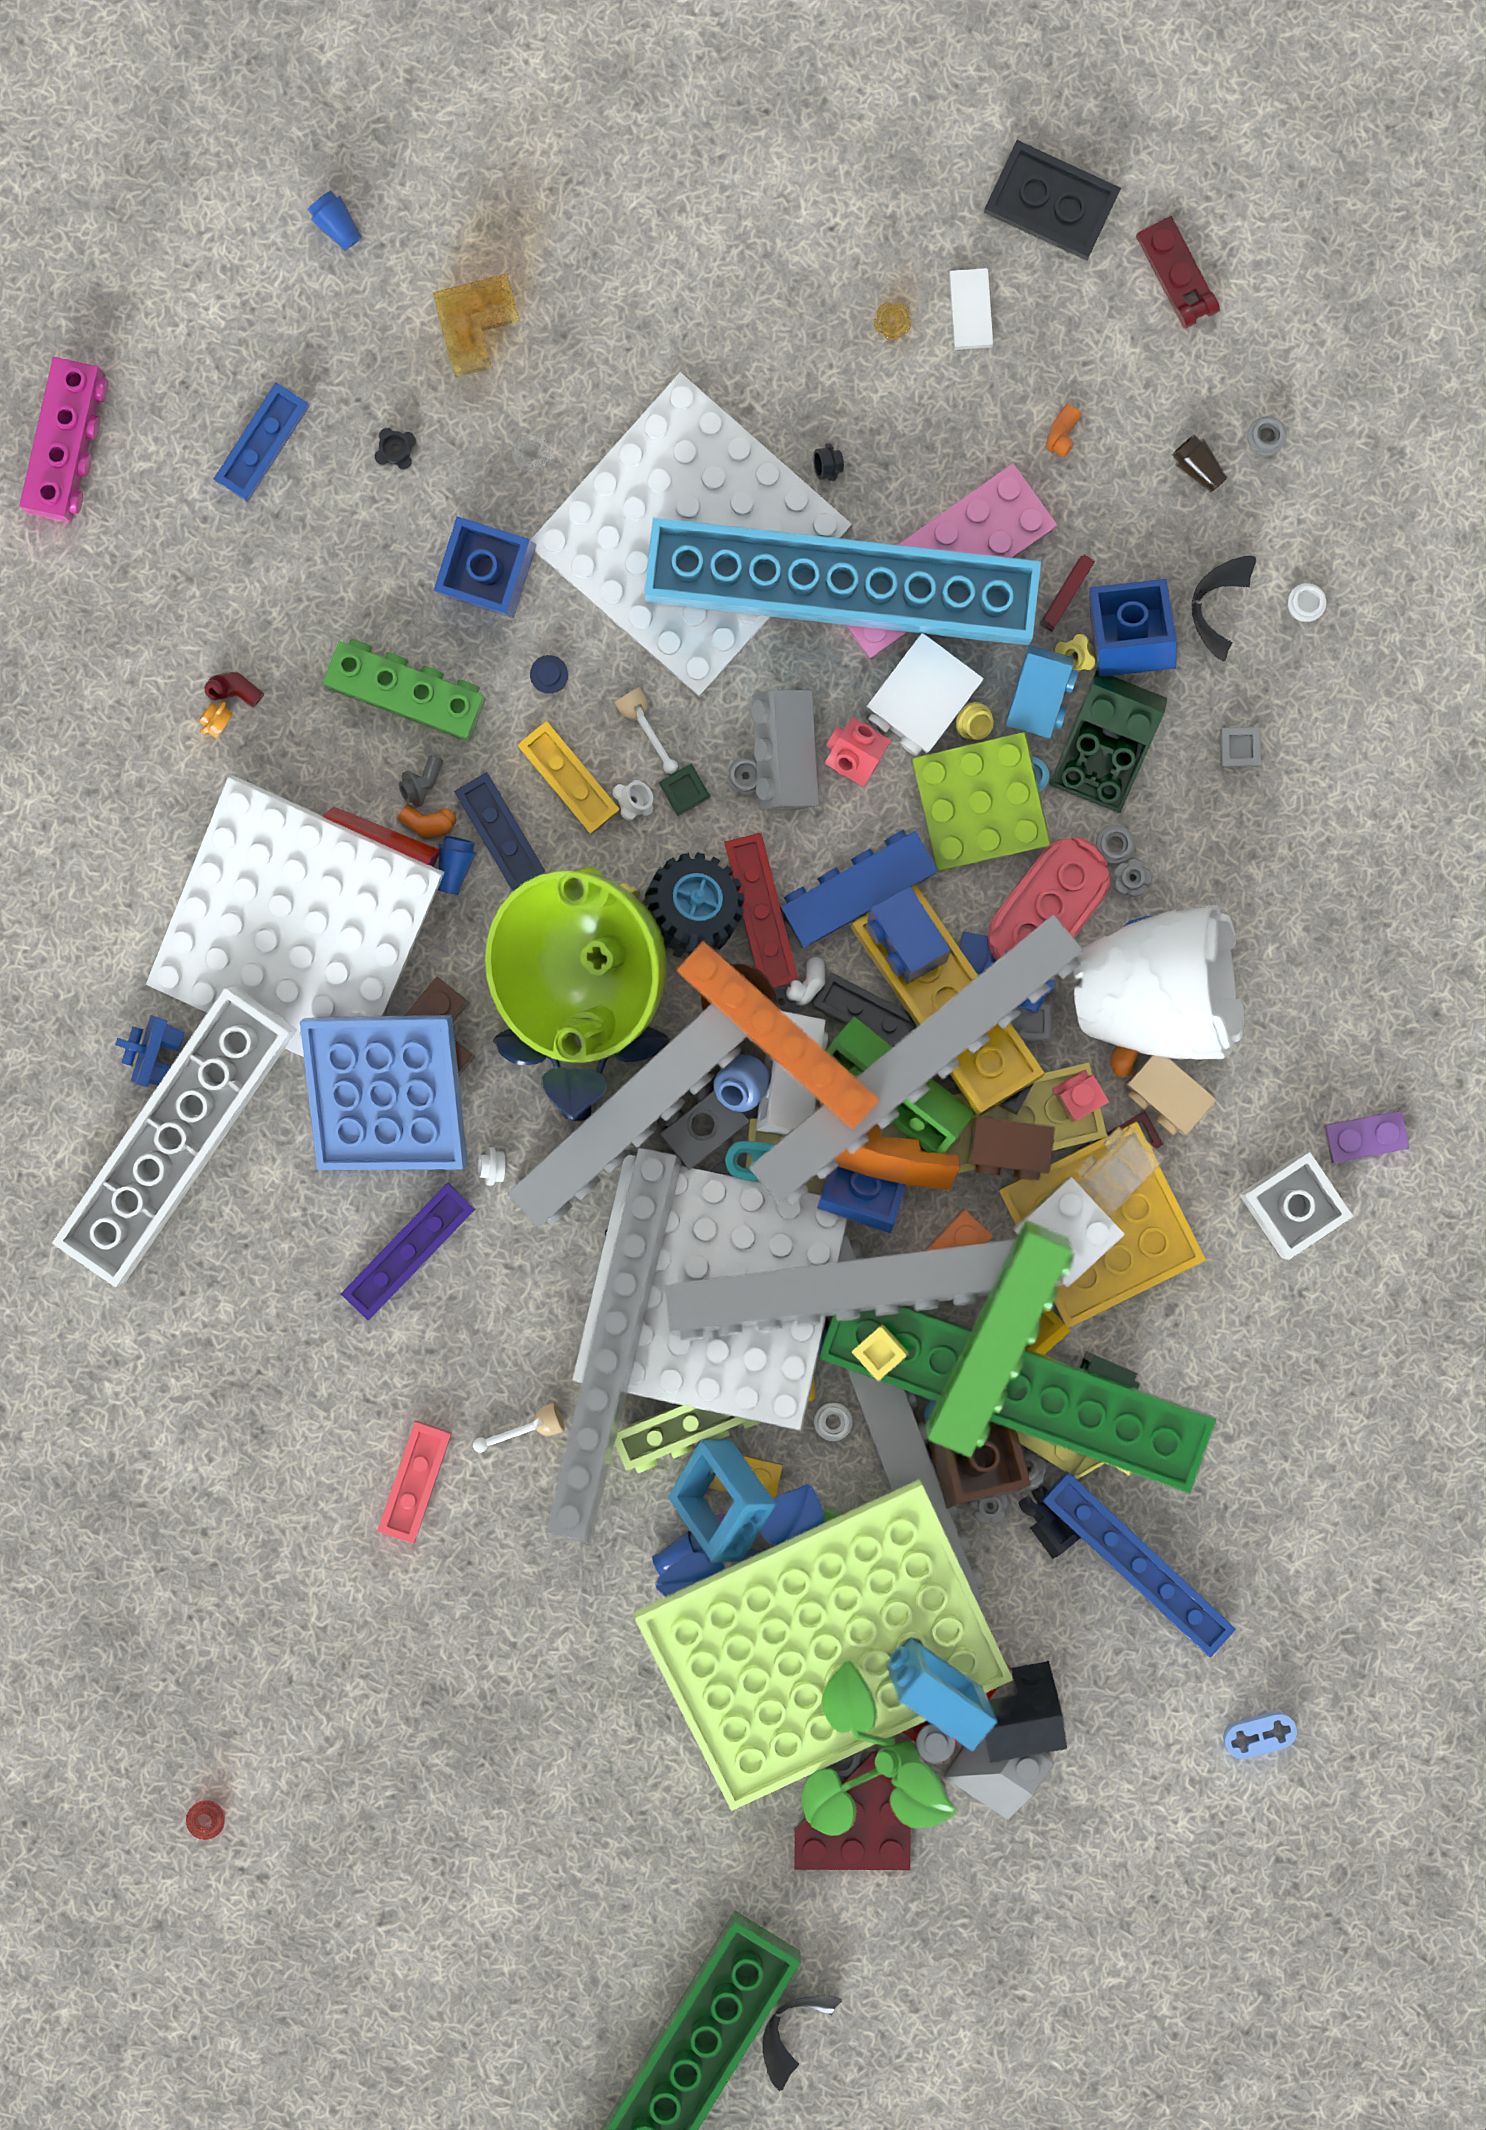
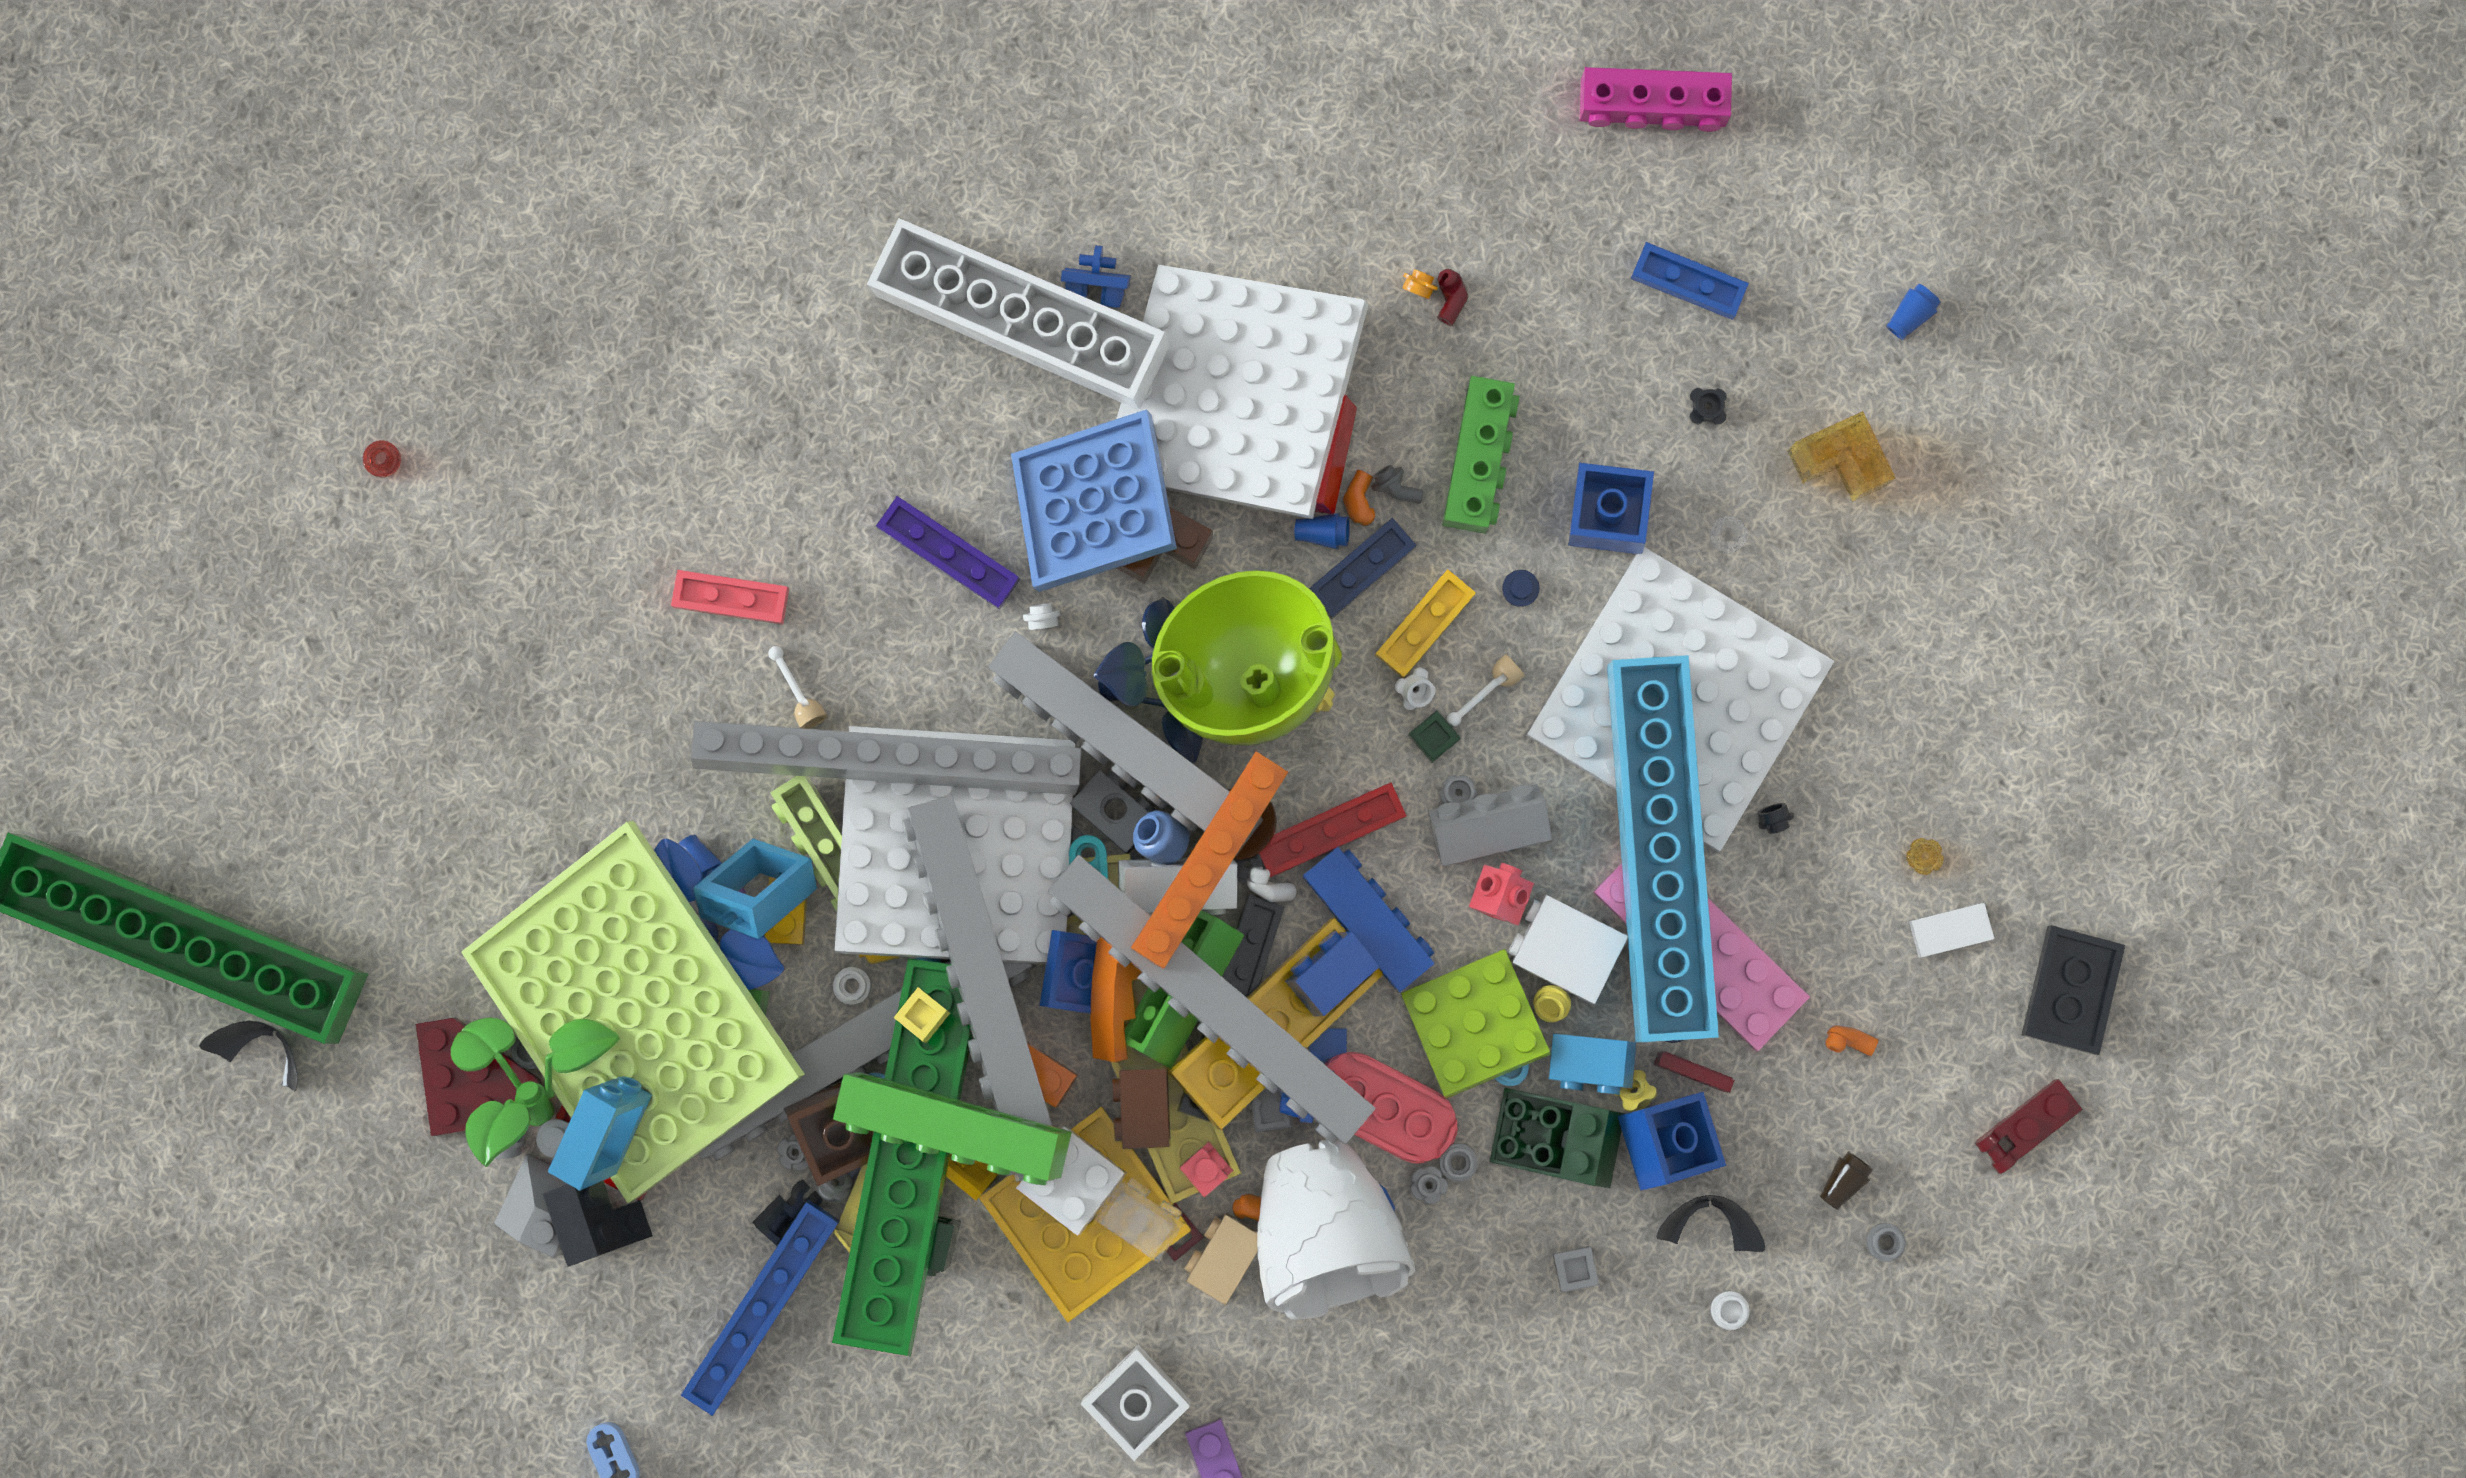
camera: 85 degrees right, 5 degrees down
(694, 903) = (1325, 762): black wheel -> none

